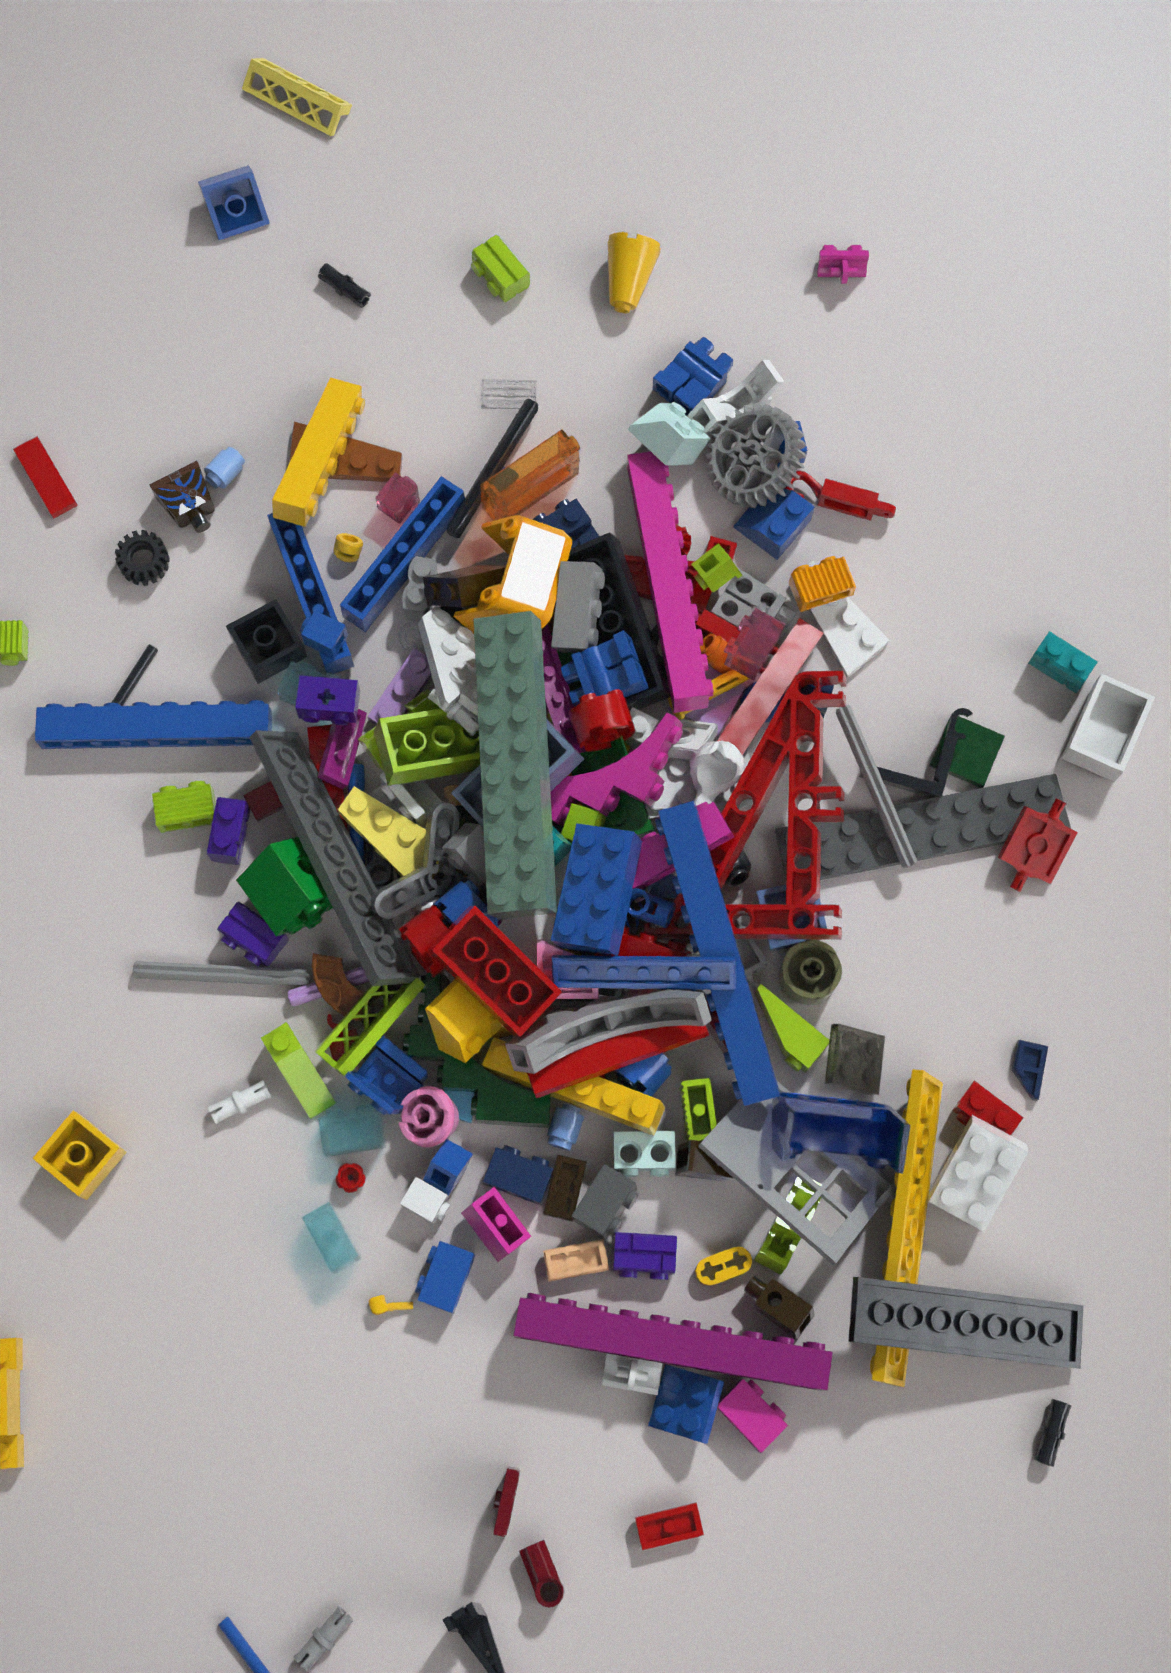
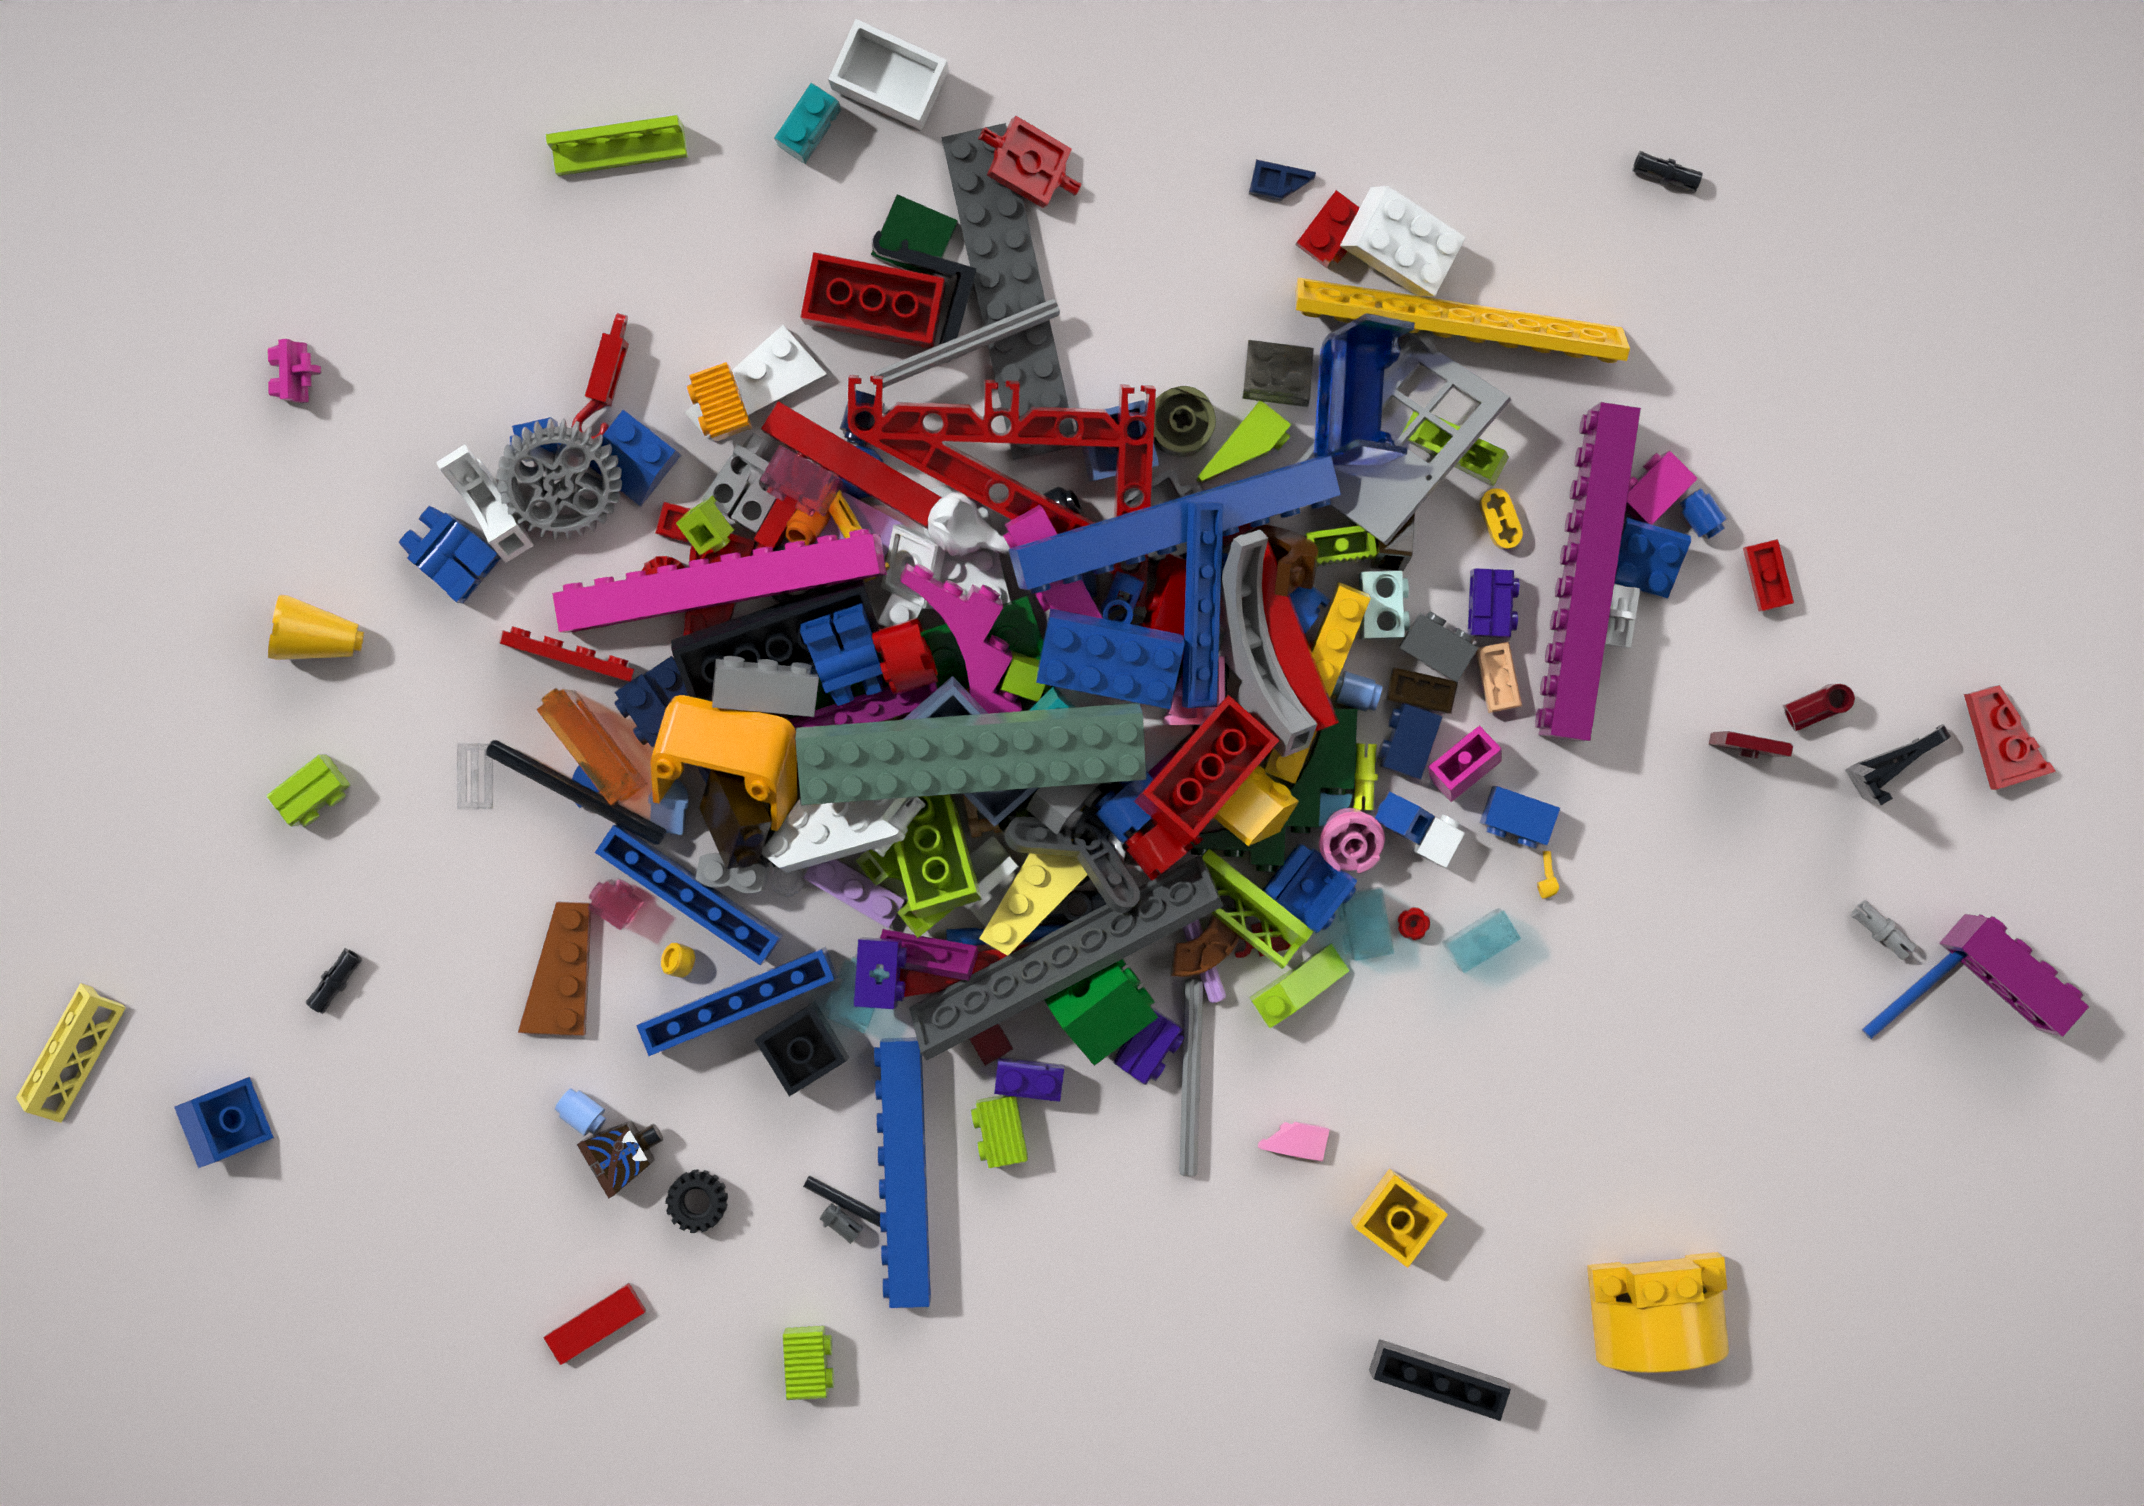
camera: 85 degrees left, 15 degrees up
(114, 673) = (840, 1223): none -> dark grey pin
(157, 1068) = (1298, 1140): none -> bright pink slope
(239, 1102) = (1333, 1048): white pin -> none
(318, 452) = (565, 1000): yellow brick -> none
(324, 634) = (801, 981): blue brick -> none
(476, 542) = (671, 810): none -> light blue tile
(487, 1134) = (1365, 776): none -> neon yellow pin
(612, 450) = (552, 649): none -> red wing
(670, 434) = (533, 581): light aqua slope -> none
(685, 1061) = (1295, 559): none -> reddish brown arch
(728, 1461) = (1703, 514): none -> blue brick
(793, 1312) = (1556, 446): dark brown torso -> none
(911, 711) = (873, 300): none -> red brick
(965, 1323) = (1565, 259): plate -> none
(1038, 512) = (617, 145): none -> lime fence

